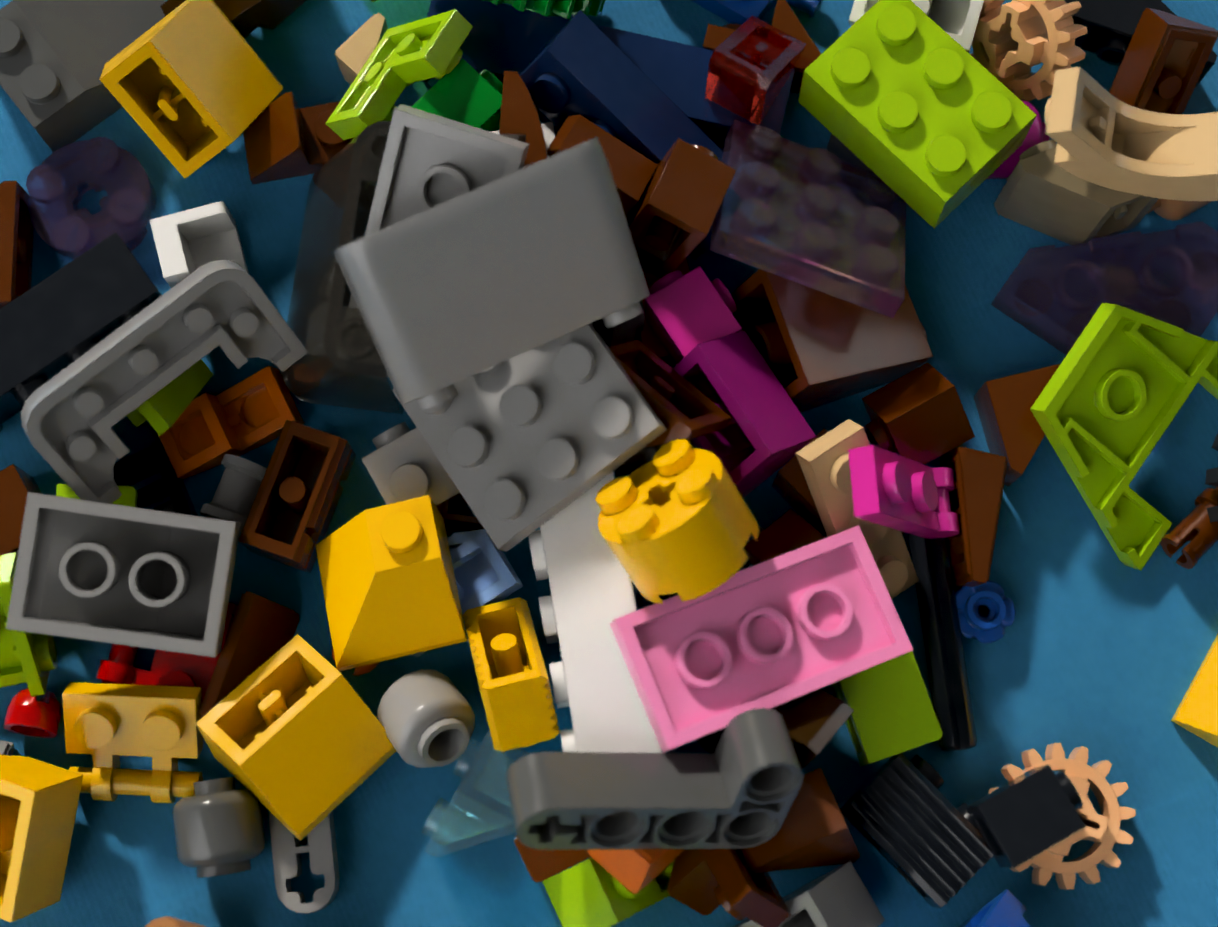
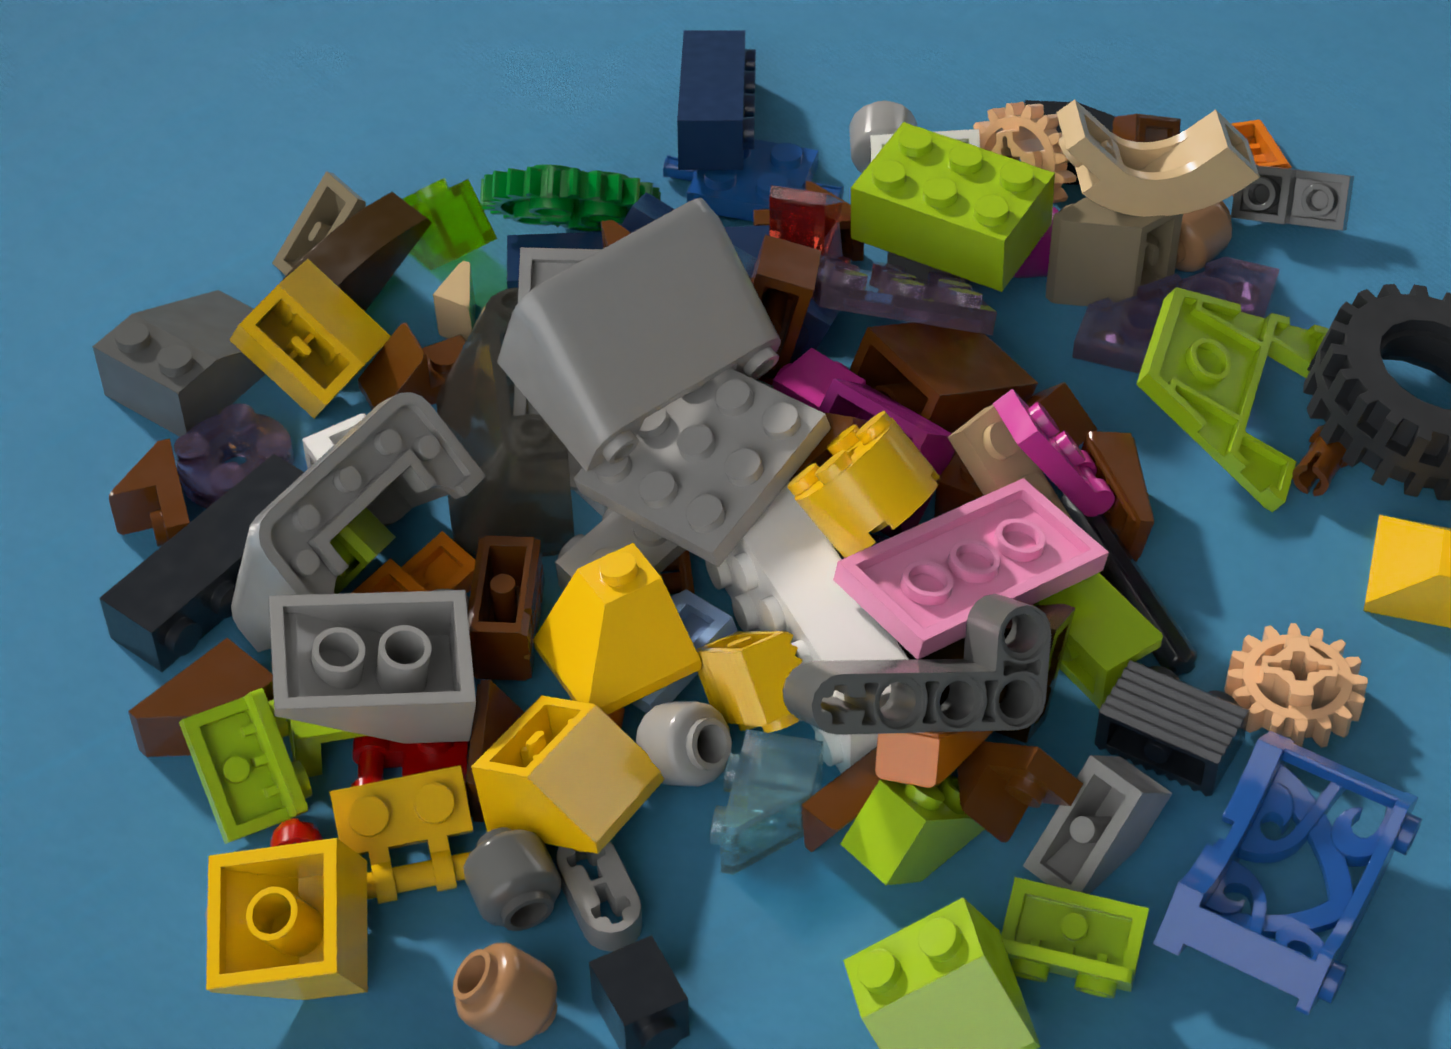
camera: 15 degrees left, 30 degrees down
(401, 57) = (499, 273): lime plate -> none
(810, 835) = (1073, 723): reddish brown slope -> none
(1000, 616) = (1162, 564): blue plate -> none
(1007, 417) = (1125, 408): reddish brown slope -> none
(1027, 815) = (1260, 657): black brick -> none

